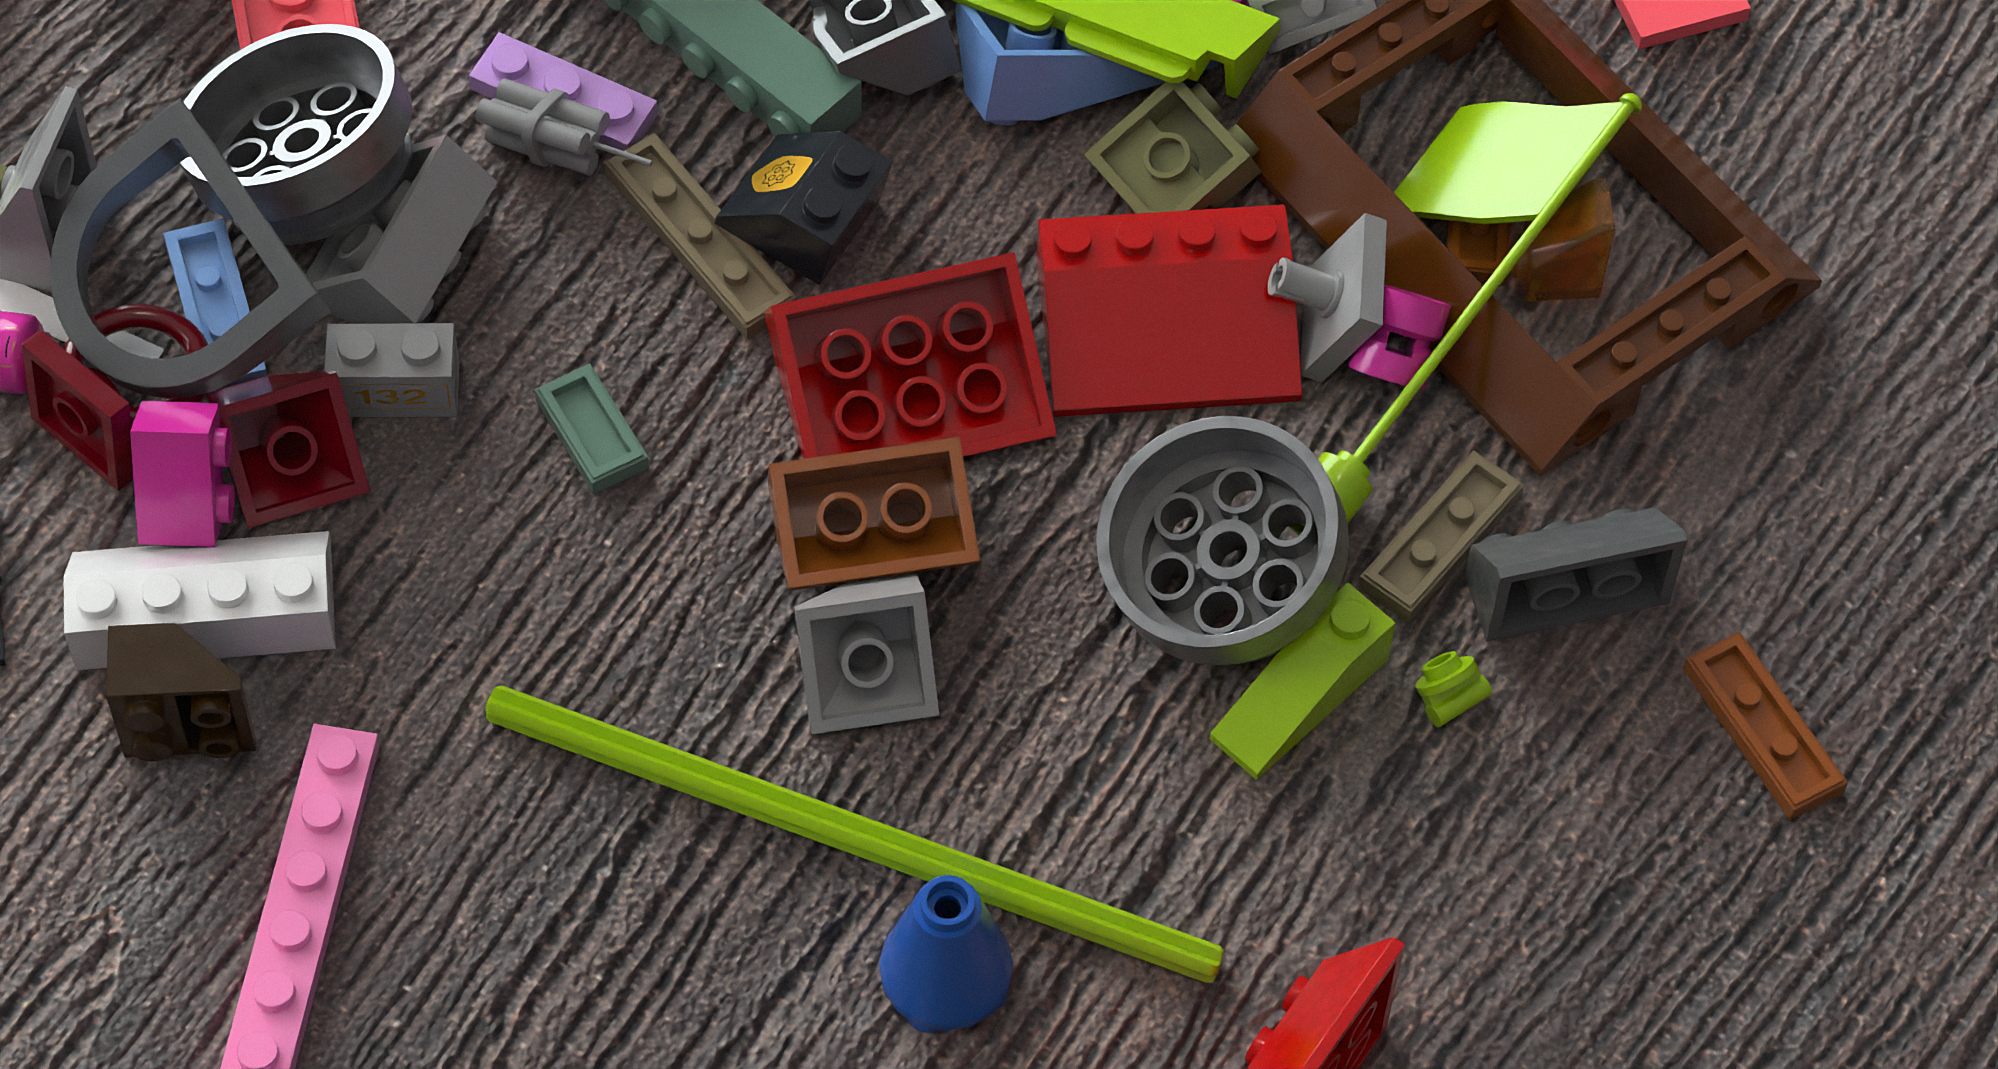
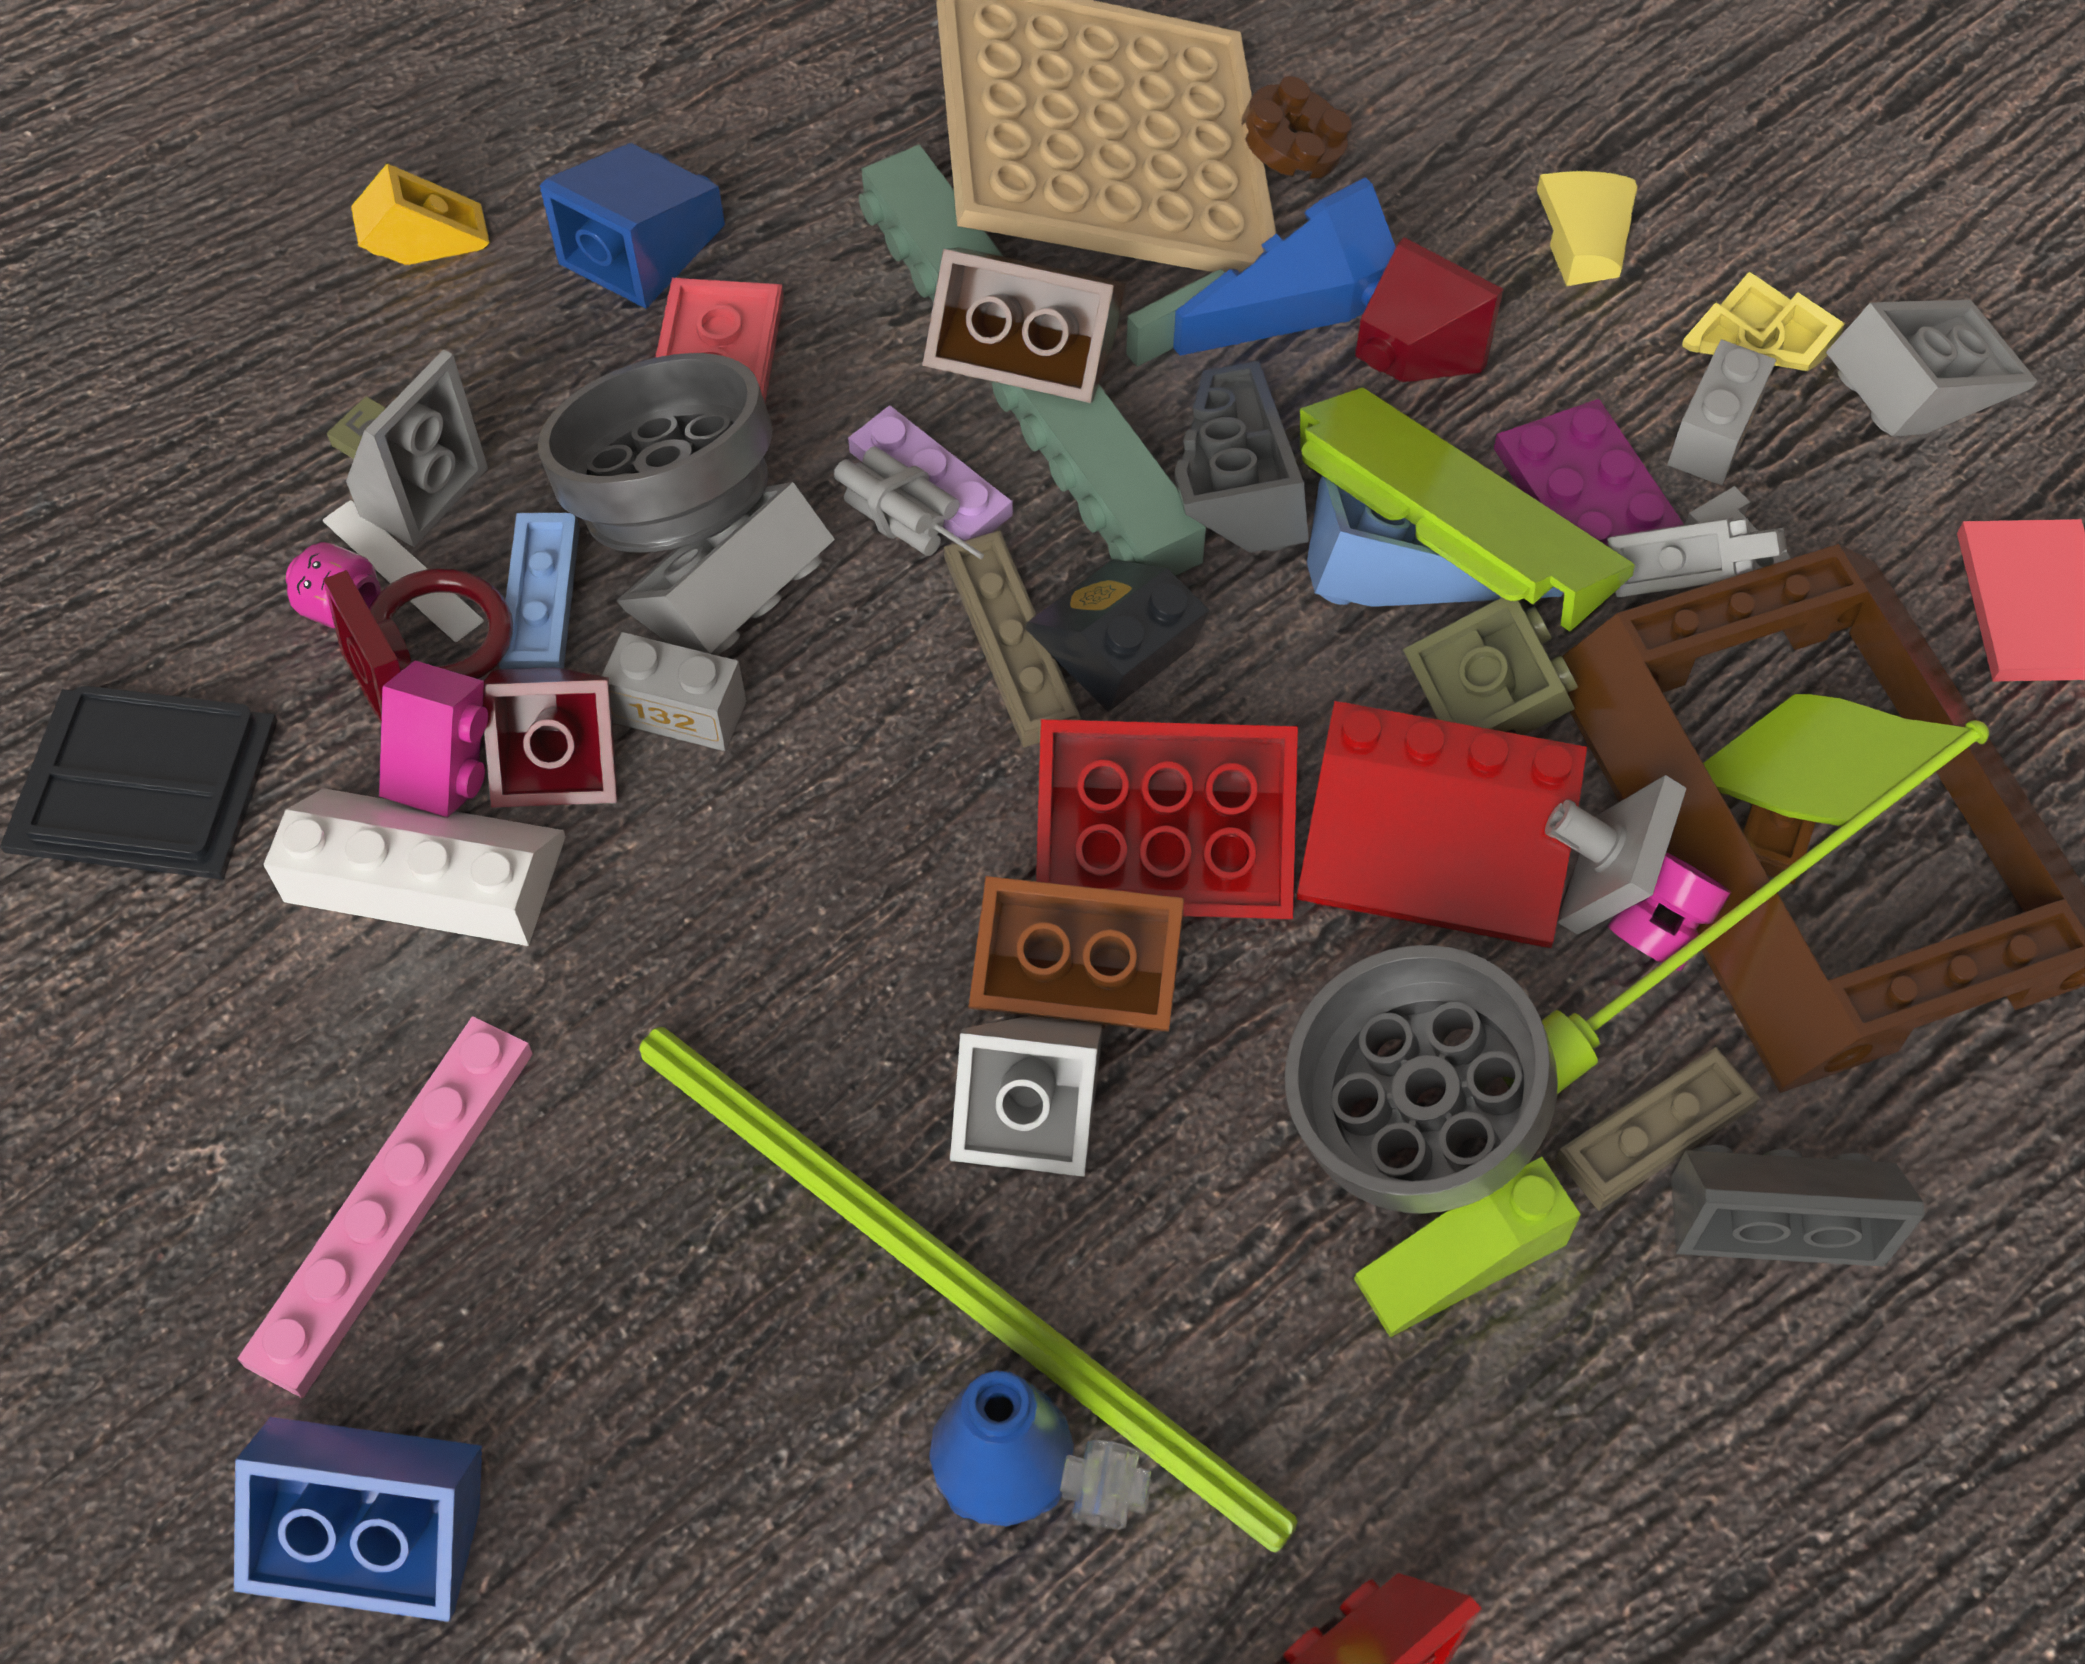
camera: 20 degrees right, 0 degrees up
(119, 178) = (486, 436): dark grey window -> none
(173, 695) = (333, 953): dark brown slope -> none
(591, 428) = (844, 796): sand green tile -> none
(1049, 964) = (1106, 1484): none -> clear gear
(1451, 686) = (1624, 1295): lime plate -> none
(1571, 249) = (1874, 865): clear orange slope -> none
(1765, 726) = (1959, 1436): dark orange tile -> none

